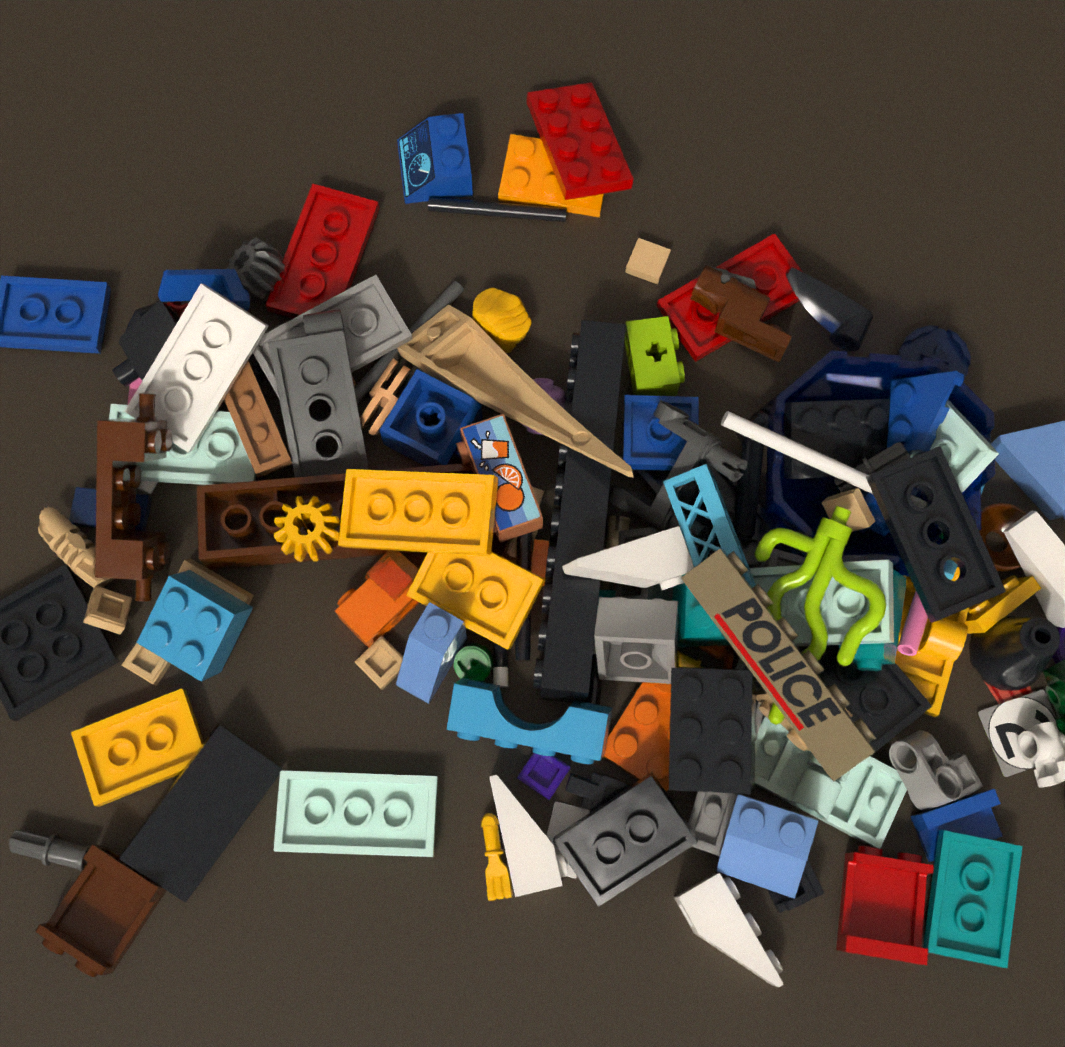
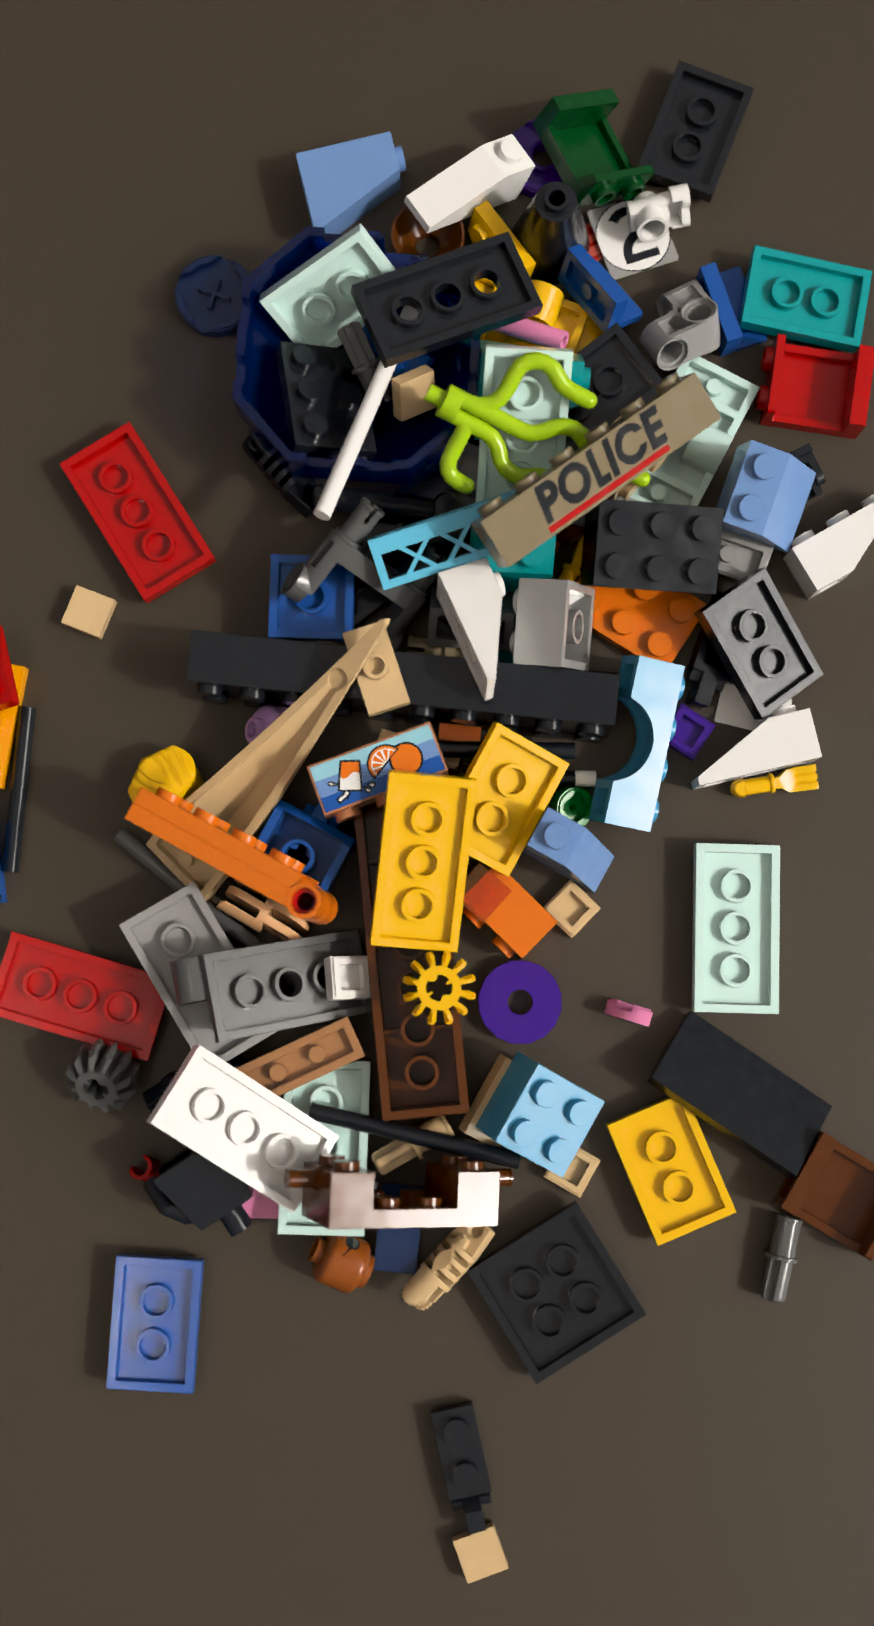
camera: 90 degrees left, 10 degrees up
(79, 459) = (341, 1262): none -> dark orange head
(108, 610) = (520, 1217): tan tile -> none
(179, 519) = (398, 1153): none -> tan axle
(182, 285) = (131, 1109): blue bracket -> none
(186, 511) = (414, 1135): none -> black piece
(283, 712) = (628, 1012): none -> bright pink tile
(284, 600) = (519, 1027): none -> dark purple tile
(324, 459) = (347, 978): none -> white tile
(425, 355) = (233, 854): none -> orange hinge
(587, 477) = (380, 676): none -> tan plate
(651, 338) = (236, 615): lime brick -> none
(740, 311) = (163, 503): reddish brown plate -> none
(833, 310) = (159, 403): black piece -> none
(919, 409) = (298, 309): blue wing -> none
(963, 693) = (596, 290): none -> blue panel

